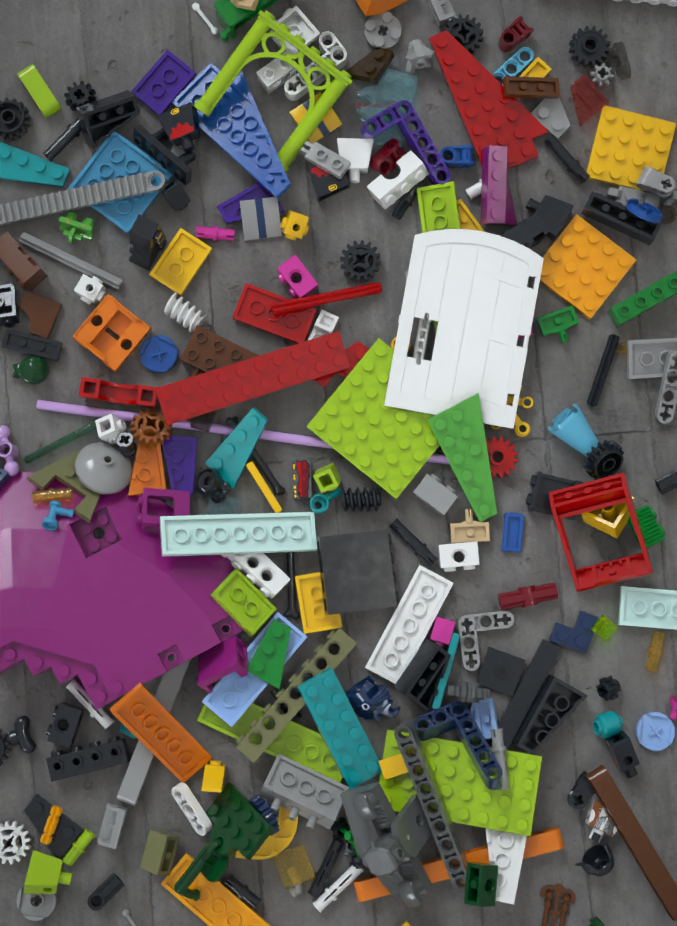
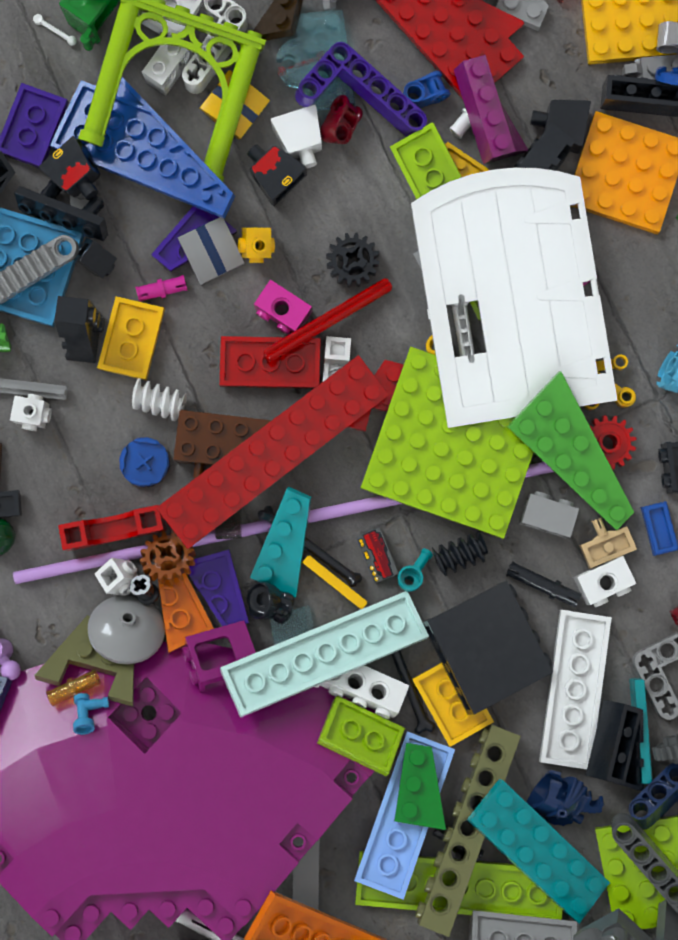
camera: 20 degrees left, 0 degrees up
(62, 441) = (64, 611): clear green bar -> none
(121, 322) = (83, 439): orange piece -> none
(221, 661) = (363, 822): magenta panel -> none
(325, 159) = (265, 149): light grey hinge -> none
(327, 478) = (409, 542): lime brick -> none
(388, 191) = (356, 162): white arch -> none
(395, 765) = (623, 873): yellow tile -> none
(404, 202) = (381, 168): black axle -> none
(442, 631) = (619, 682): dark pink brick -> none
(558, 322) = (622, 251): green plate -> none
(567, 159) = (560, 48): black pin -> none

